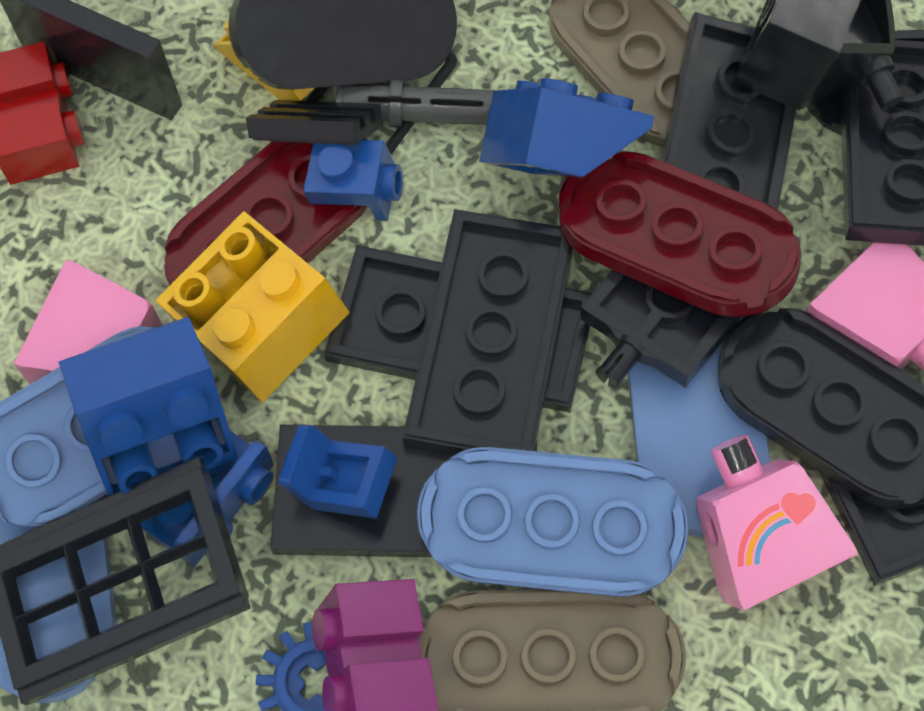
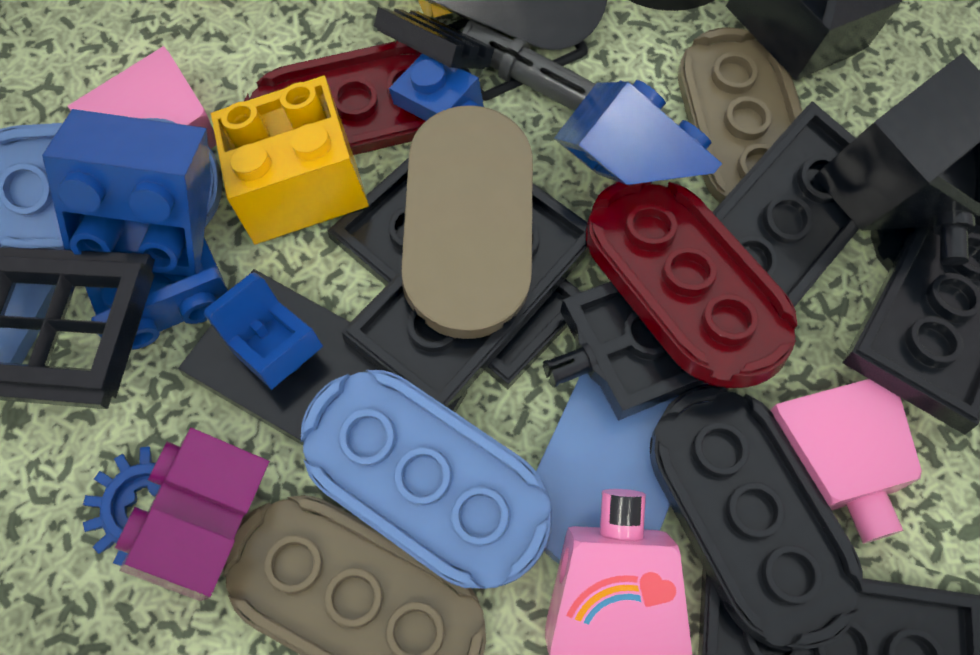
camera: 20 degrees right, 0 degrees up
(456, 279) = (468, 222): none -> dark tan tile

